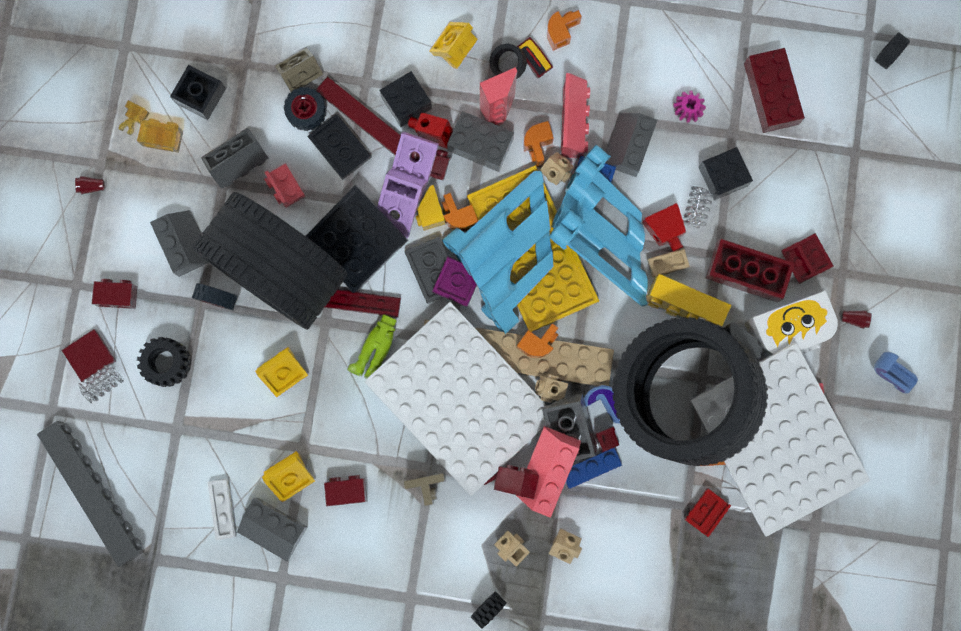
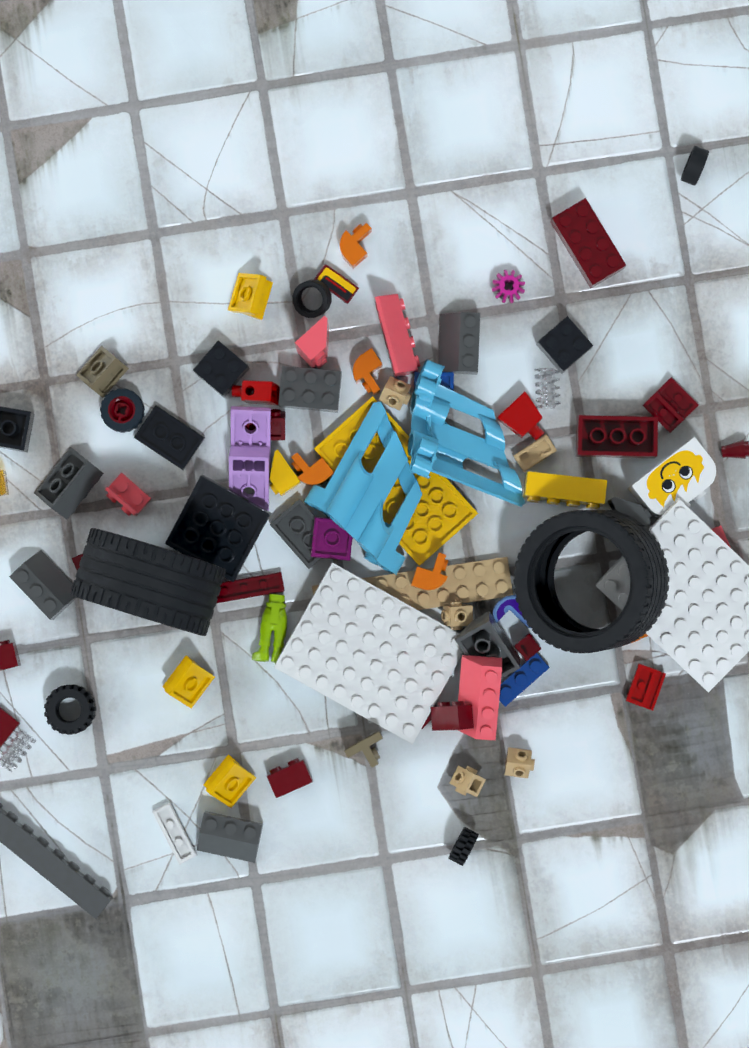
camera: 15 degrees left, 5 degrees up
(214, 296) = (99, 630): black wheel -> none
(359, 115) = (180, 399): dark red tile -> none

